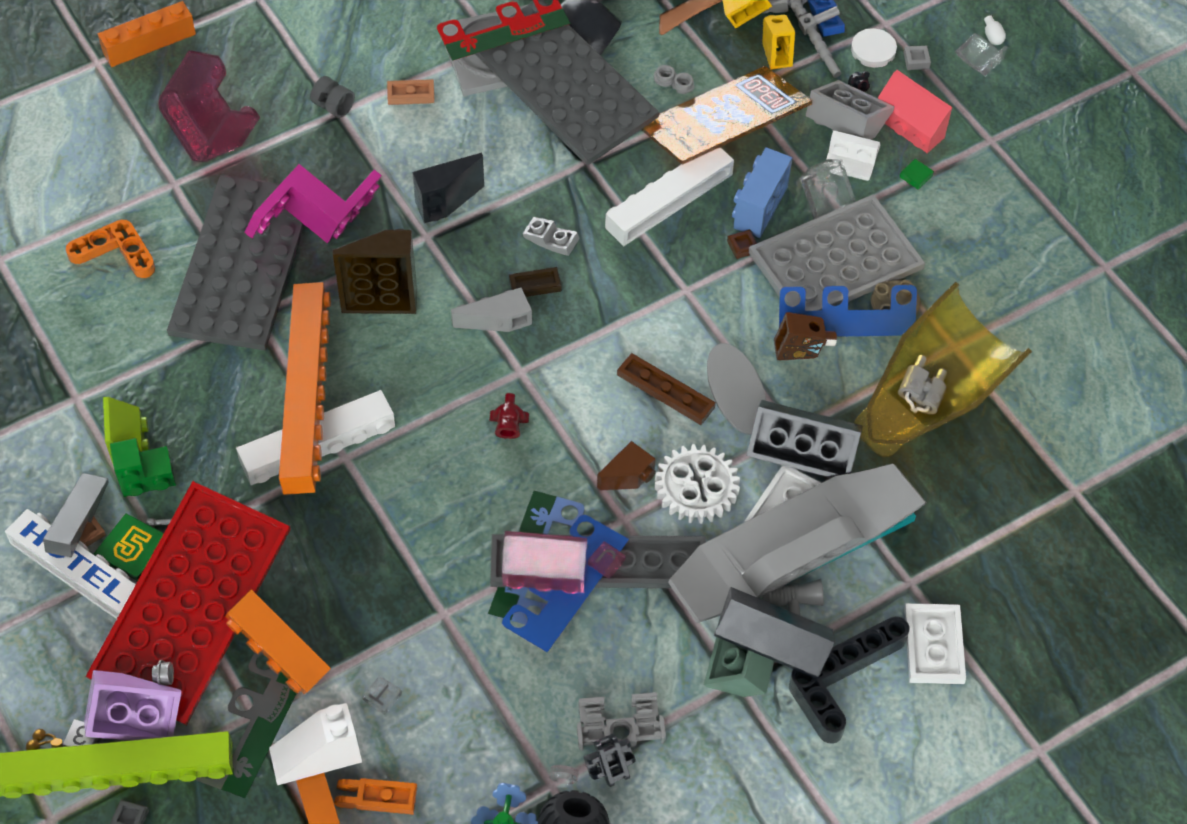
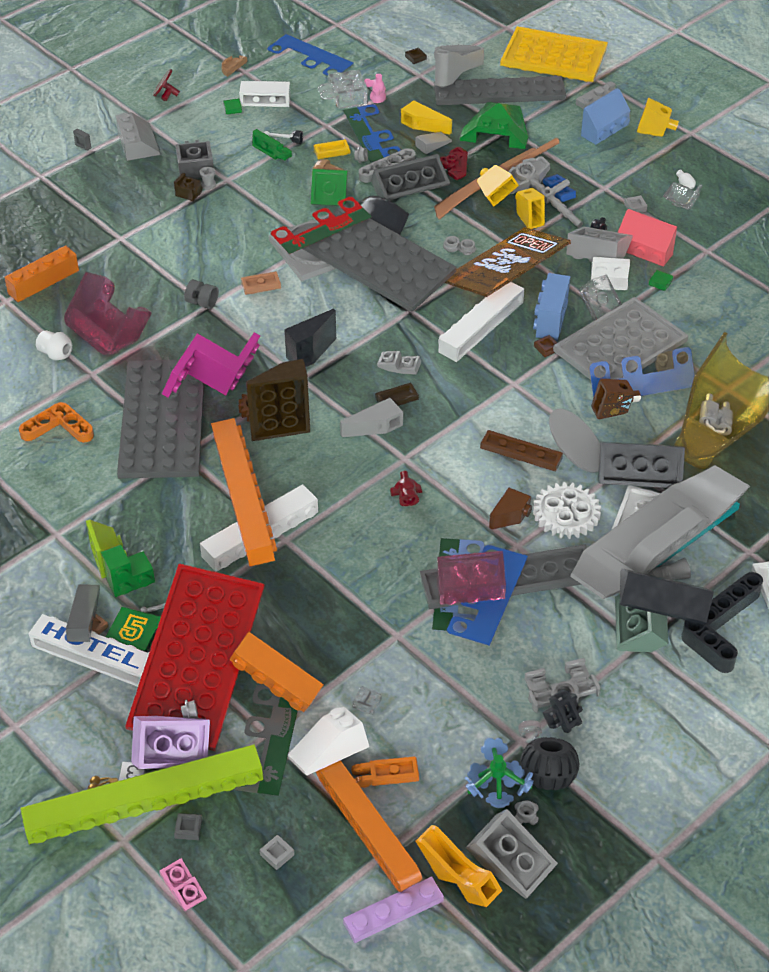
camera: 10 degrees left, 10 degrees down
(137, 139) = (55, 345): none -> white piece
(606, 560) = (516, 571): clear pink tile -> none
(873, 47) = (601, 203): white tile -> none

